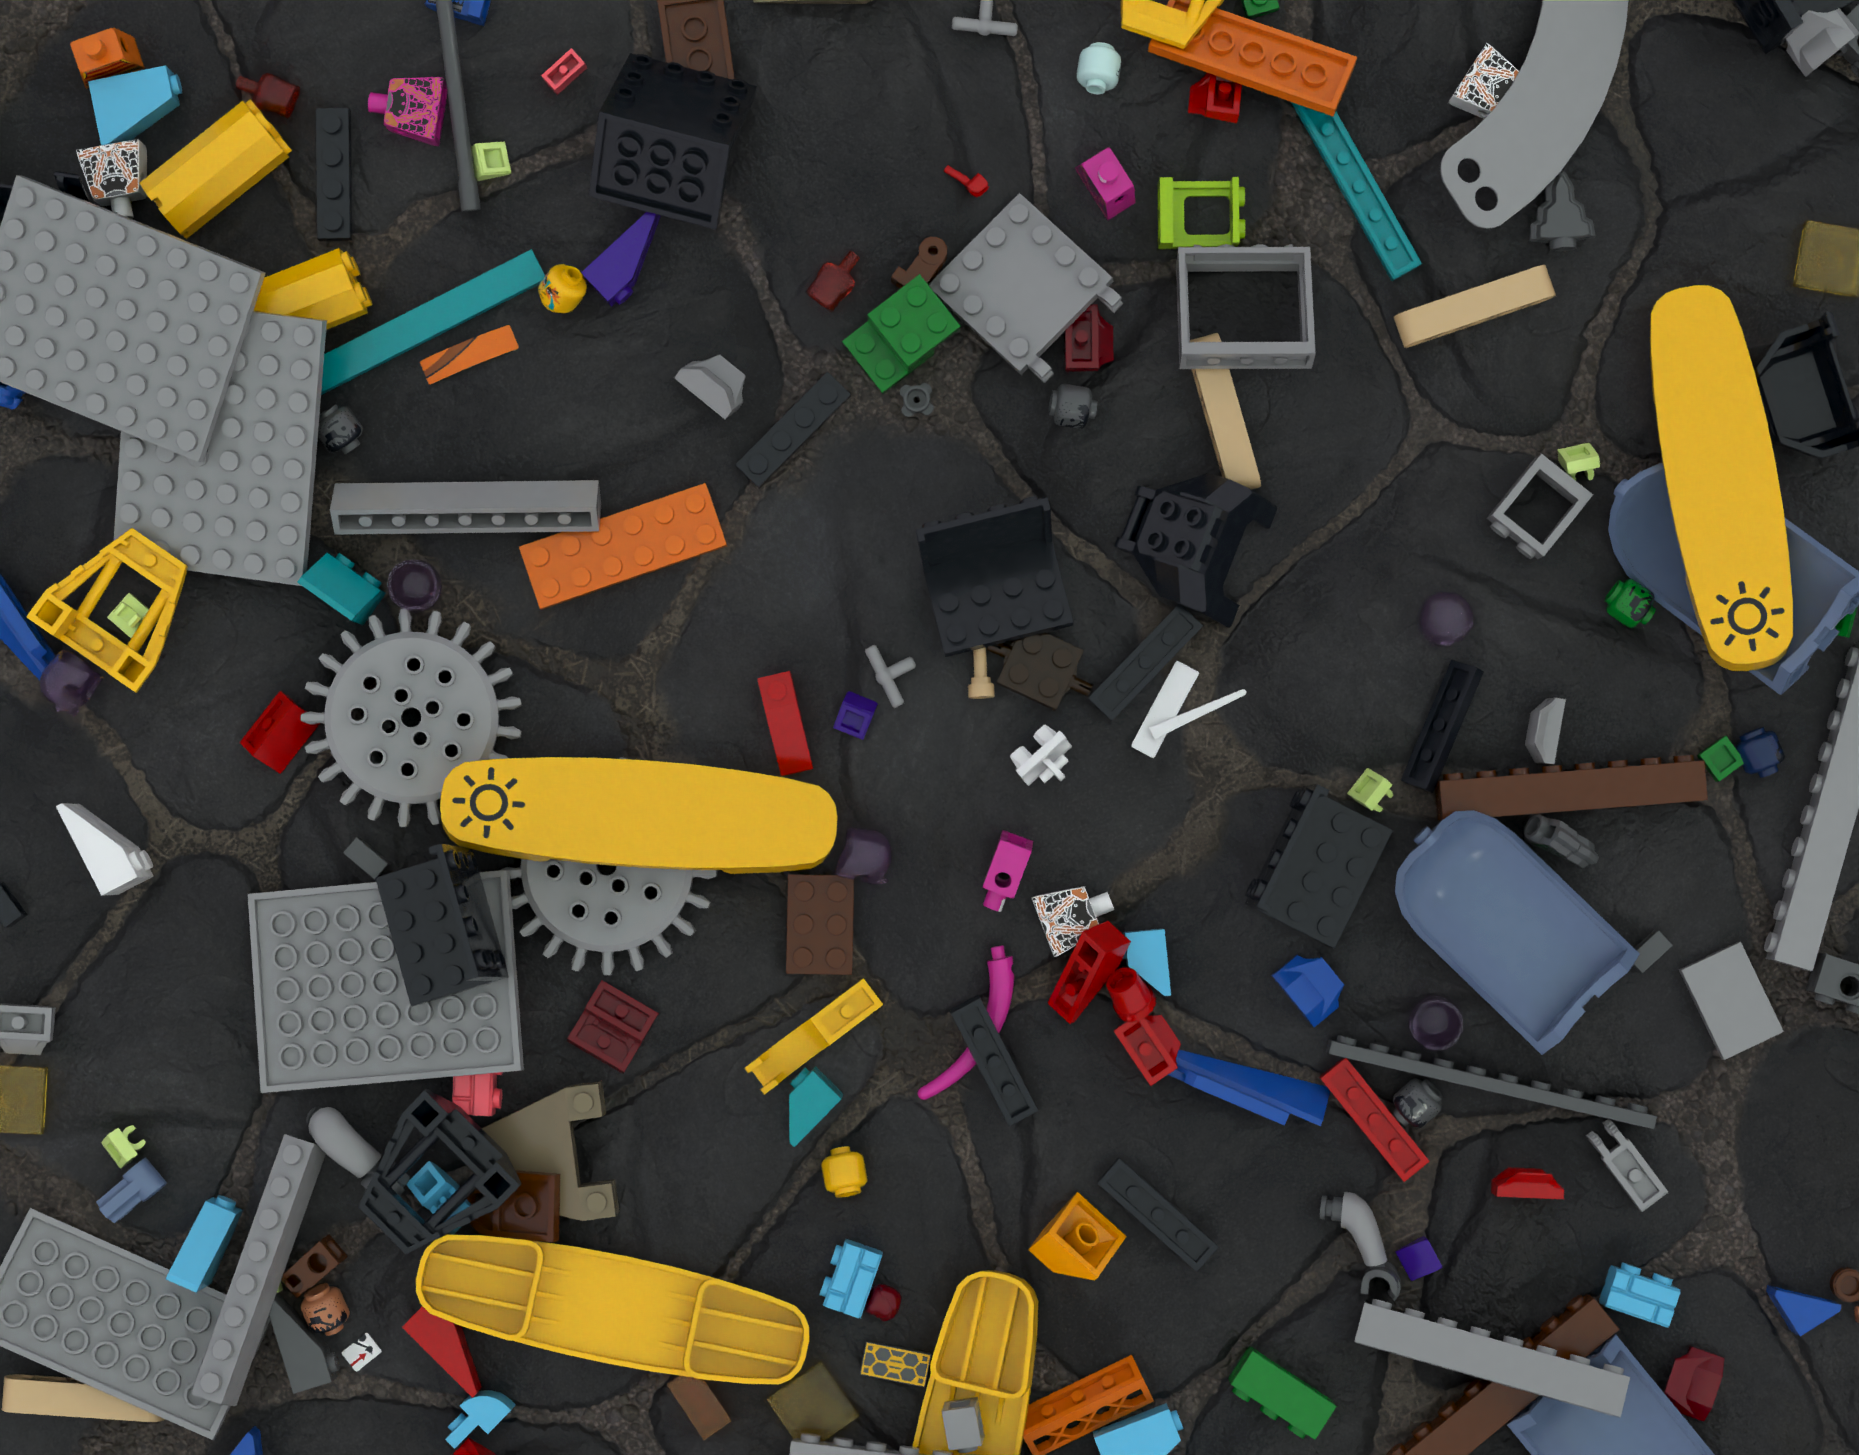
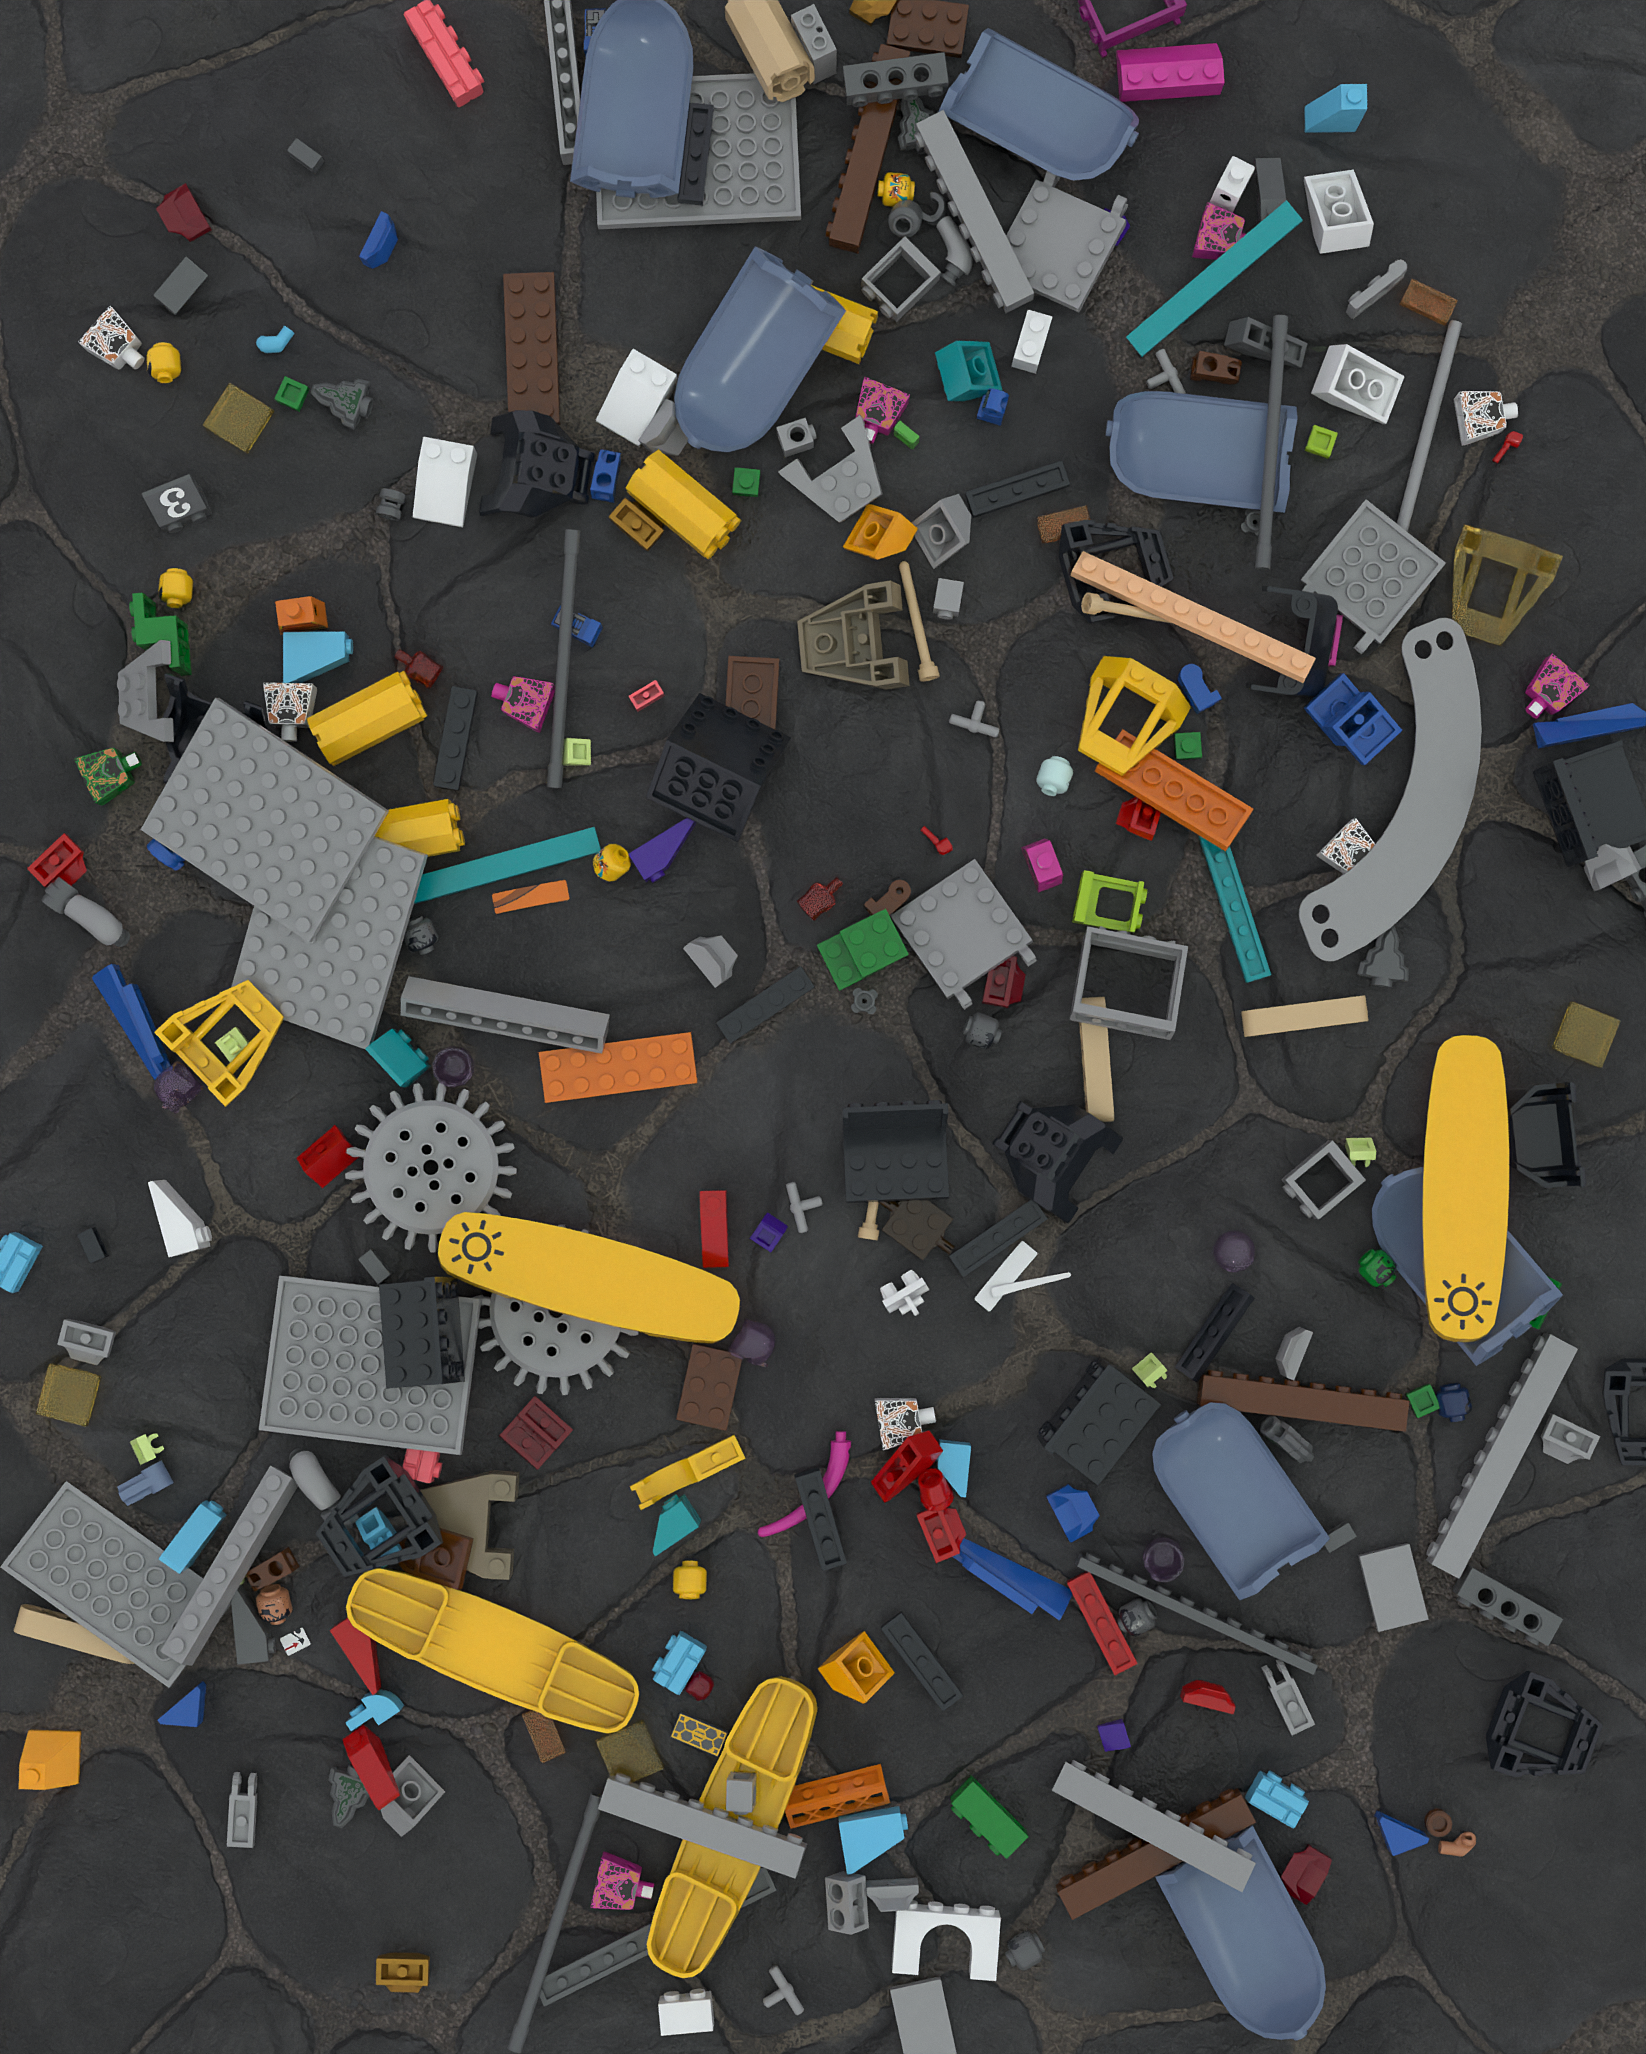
camera: 15 degrees right, 0 degrees up
(1009, 857) = (863, 1367): dark pink torso -> none
(1360, 1222) = (1075, 1699): light grey piece -> none

